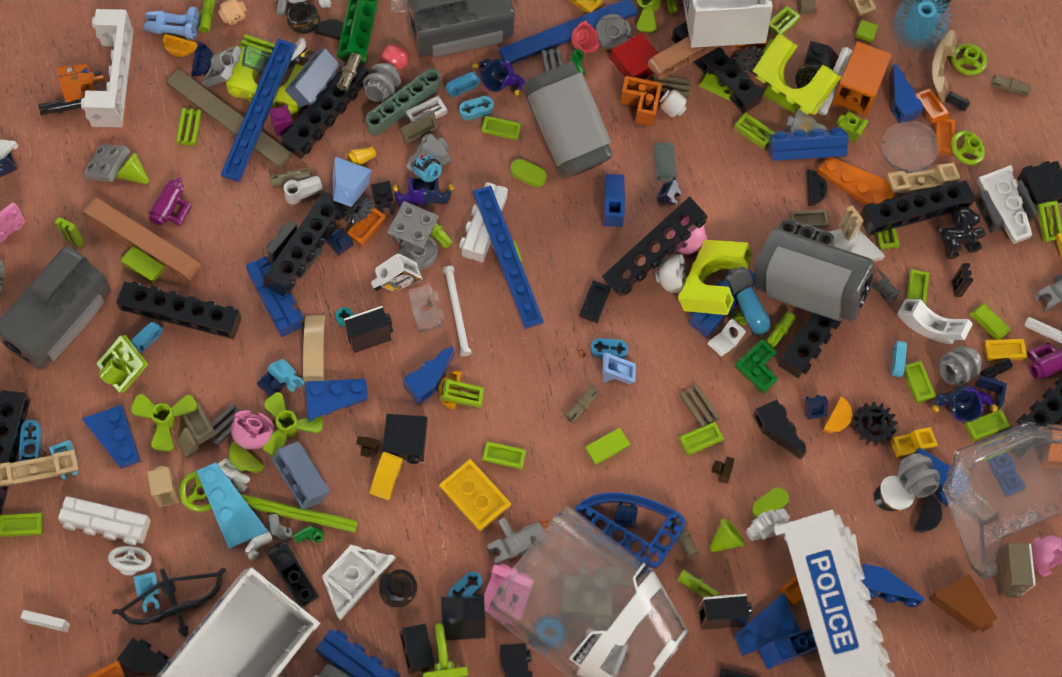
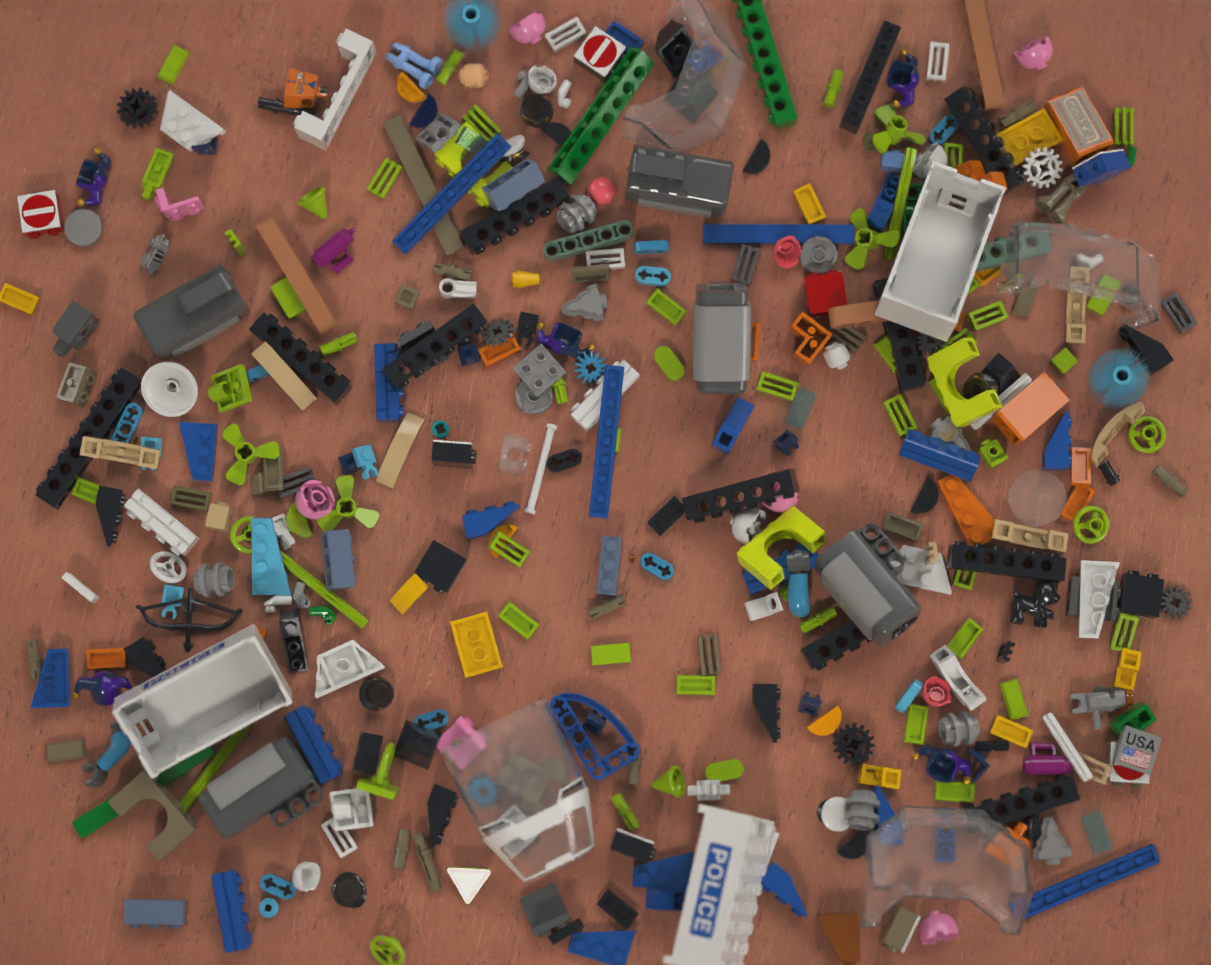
camera: 30 degrees right, 15 degrees up
(41, 527) = (108, 506): none -> black slope
(47, 397) = (164, 397): none -> white dish
(106, 163) = (295, 185): light grey plate -> none
(143, 482) = (207, 502): none -> olive tile
(171, 329) = (283, 375): none -> tan slope
(180, 551) = (216, 579): none -> light grey piece
(210, 283) = (339, 344): none -> lime axle
(257, 217) = (407, 297): none -> dark tan tile
(281, 120) = (468, 211): magenta brick -> none
(332, 395) = (397, 499): blue wing -> none
(349, 71) = (549, 193): dark tan pin -> none
(349, 181) = (500, 302): light blue slope -> none
(367, 445) = (407, 557): dark brown tile -> none
(396, 273) = (496, 412): white torso -> none
(427, 168) = (576, 321): medium azure head -> none
(454, 211) = (583, 372): none -> dark azure gear
(472, 292) = (562, 456): none -> black beam
(498, 75) = (689, 253): dark blue piece -> none
(515, 542) = (494, 704): light grey piece -> none
(565, 366) = (609, 566): none -> sand blue brick
(577, 57) = (767, 272): green arm -> none
(618, 369) = (653, 590): light blue slope -> none
(635, 155) = (774, 393): none -> lime tile
(724, 469) = (700, 723): dark brown tile -> none
(753, 366) = (774, 643): green plate -> none
(886, 288) = (934, 624): dark grey piece -> none
(921, 343) = (936, 692): none -> coral hair

